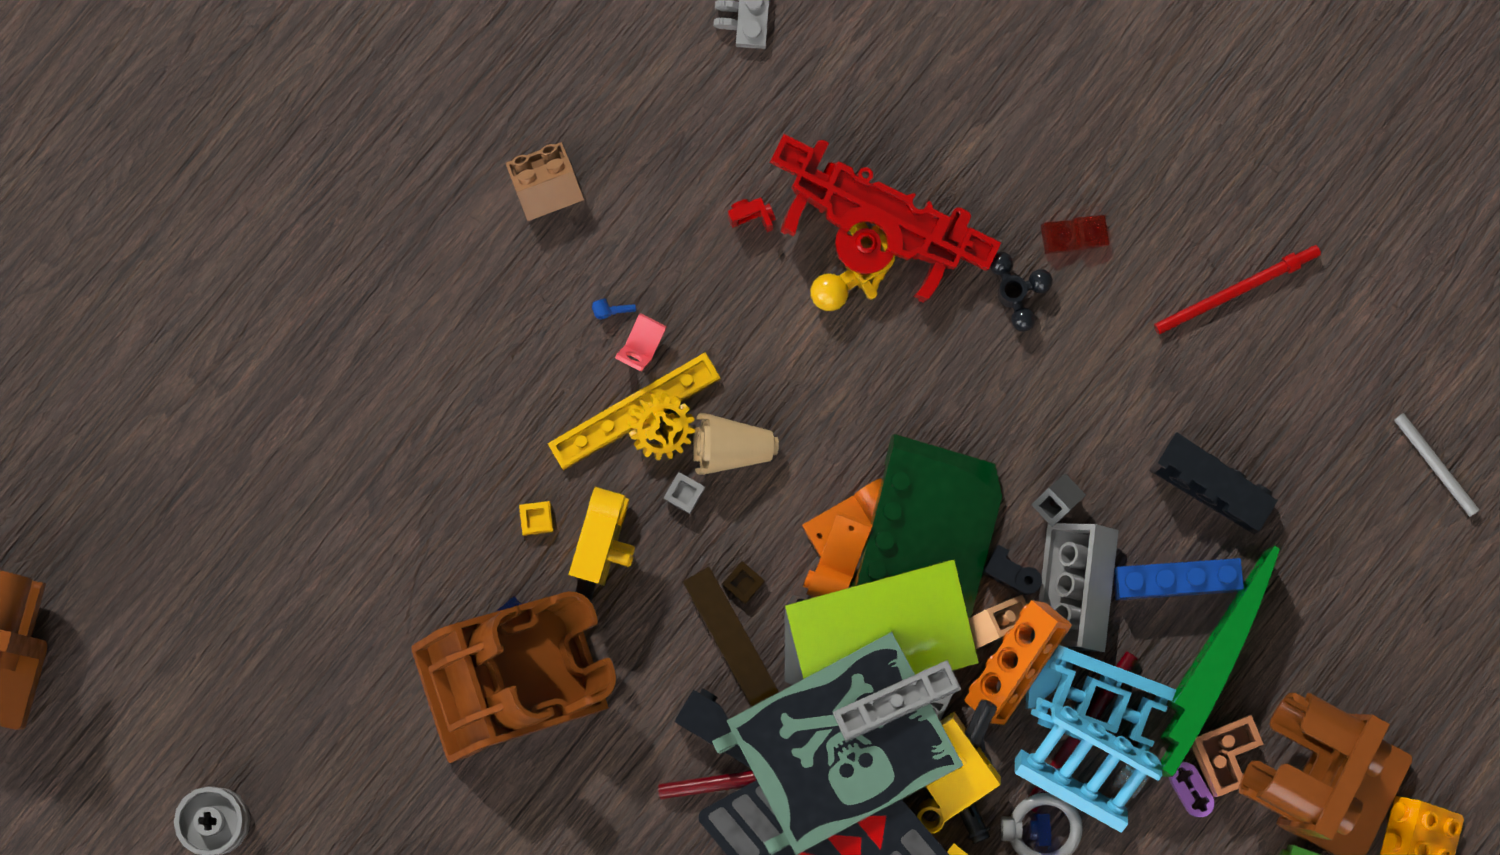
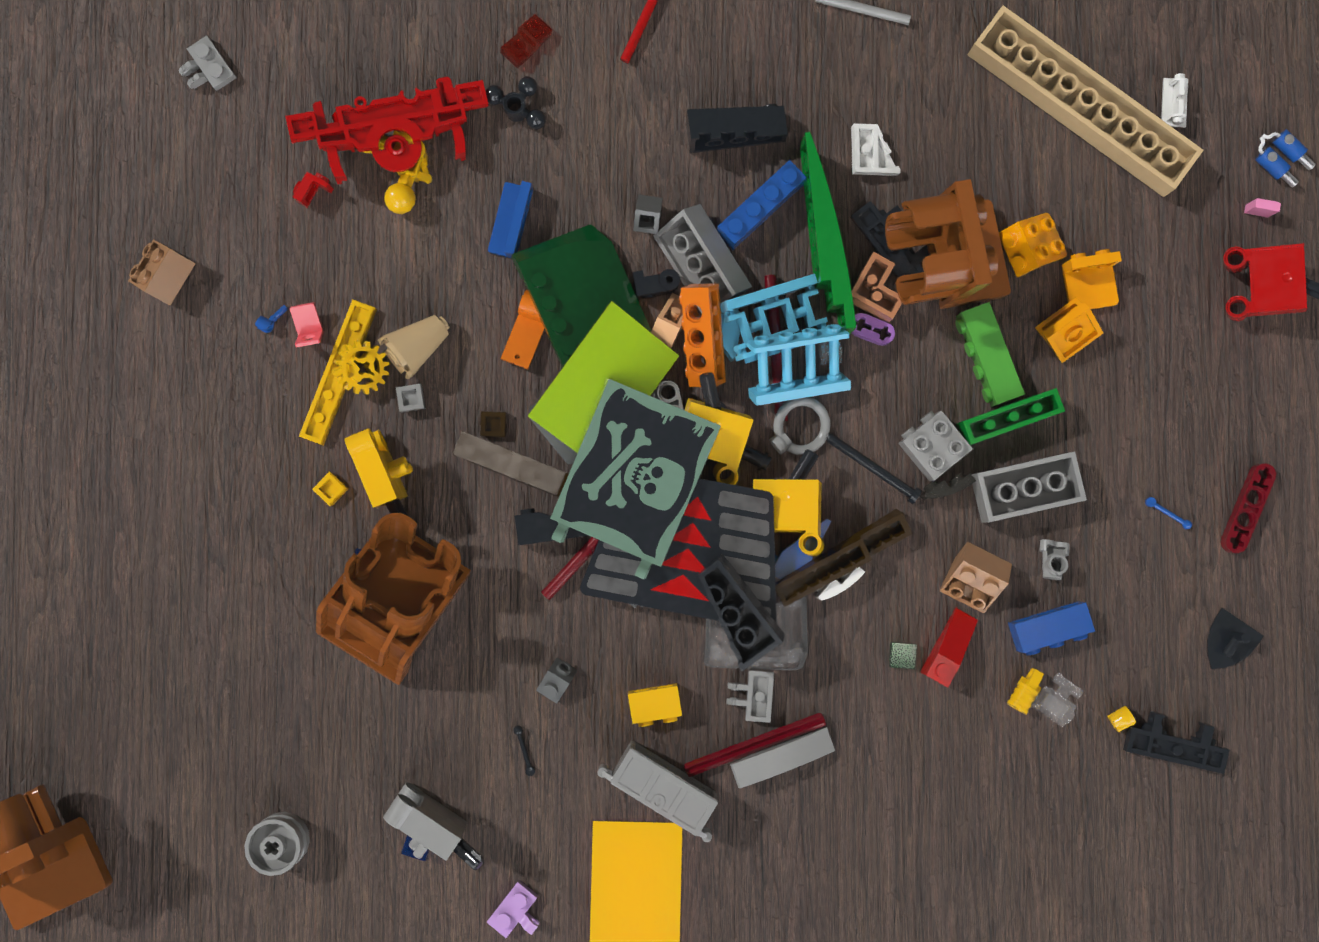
camera: 45 degrees left, 5 degrees up
(839, 556) = (538, 357): orange door -> none
(896, 701) = (646, 419): light grey plate -> none
(920, 396) = (510, 219): none -> blue panel
(1041, 830) = (800, 428): clear blue plate -> none
(1273, 686) = (872, 225): none -> black hinge
(1330, 613) = (871, 152): none -> white wing

